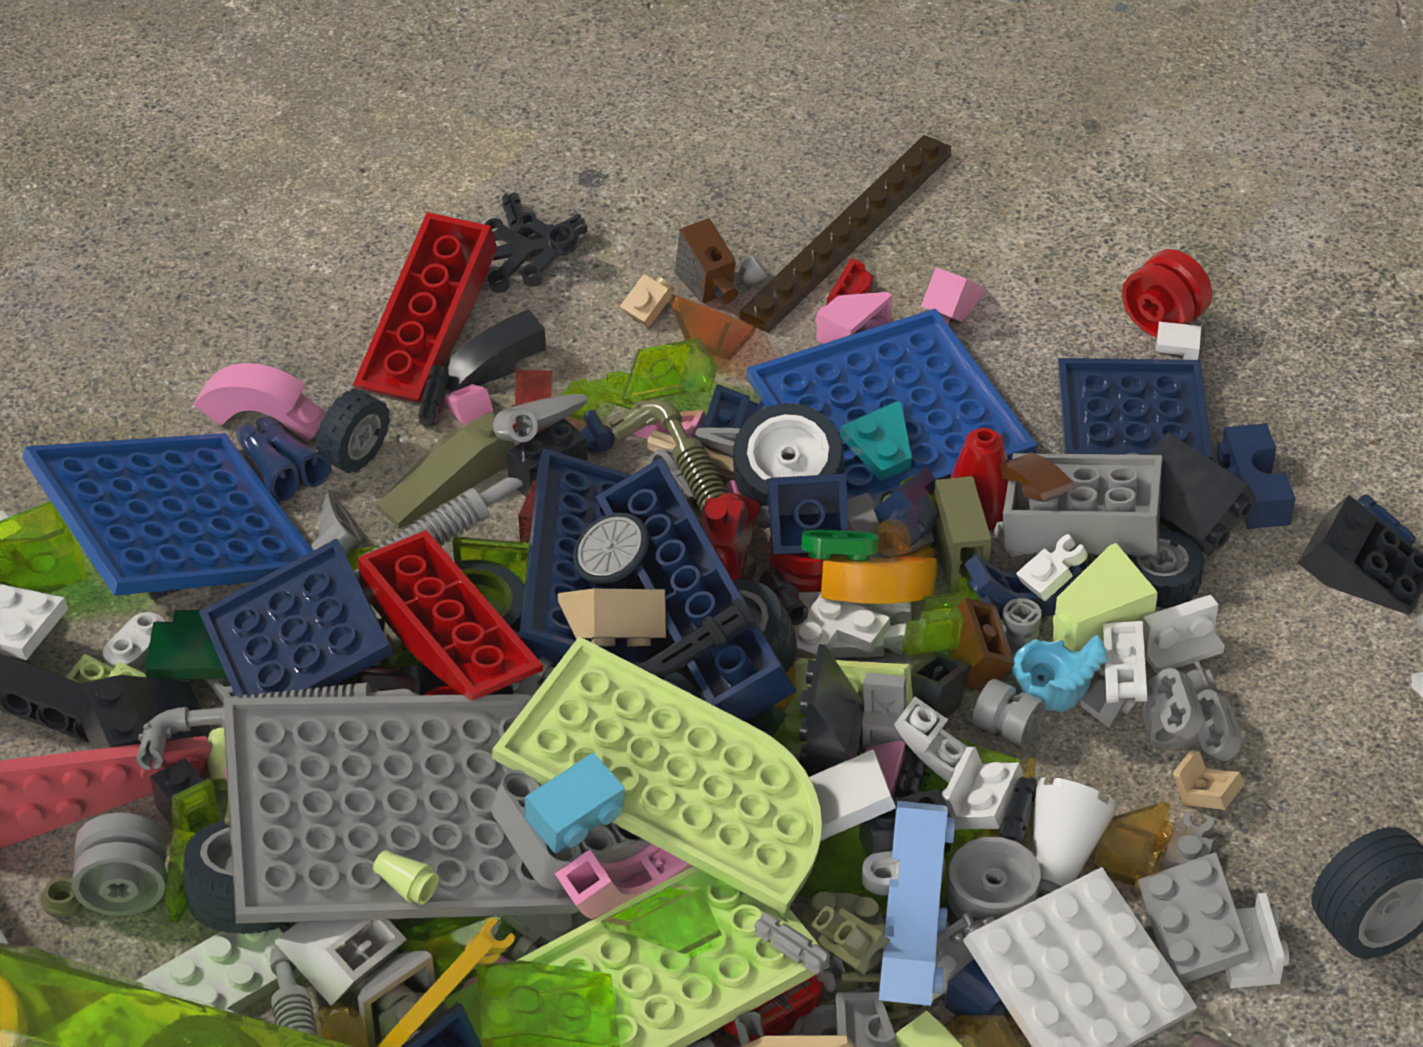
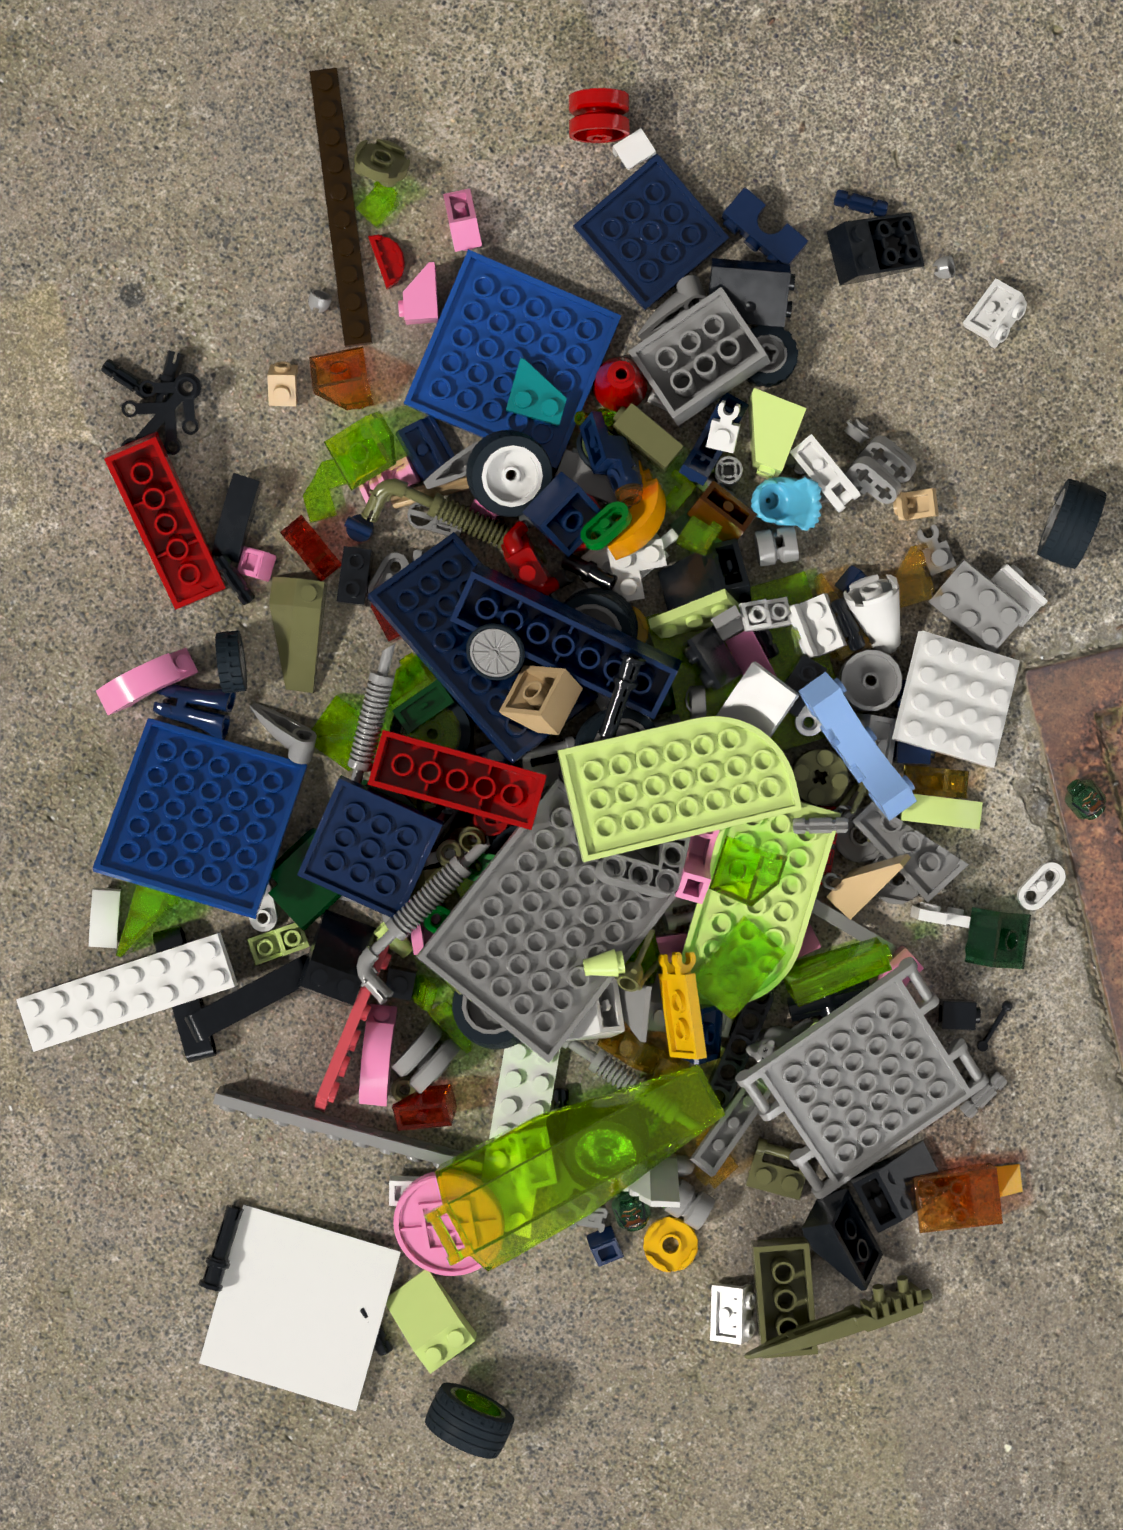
camera: 40 degrees left, 45 degrees up
(49, 838) = (377, 1055): none -> bright pink arch
(61, 917) = (429, 1109): none -> clear red slope
(426, 922) = (633, 978): none -> olive plant
(491, 563) = (423, 706): none -> dark green plate
(535, 416) = (330, 573): light grey piece -> none
(575, 803) = (661, 861): medium azure brick -> none
(705, 263) = (285, 329): reddish brown torso -> none
(850, 938) = (848, 798): olive hips -> none
(887, 247) = (378, 204): none -> clear neon green bracket
(920, 214) = (389, 170): none -> olive plate
(970, 926) = (887, 725): flat silver plant -> none
(1038, 476) = (670, 374): reddish brown slope -> none
(1182, 634) = (824, 406): white bracket -> none

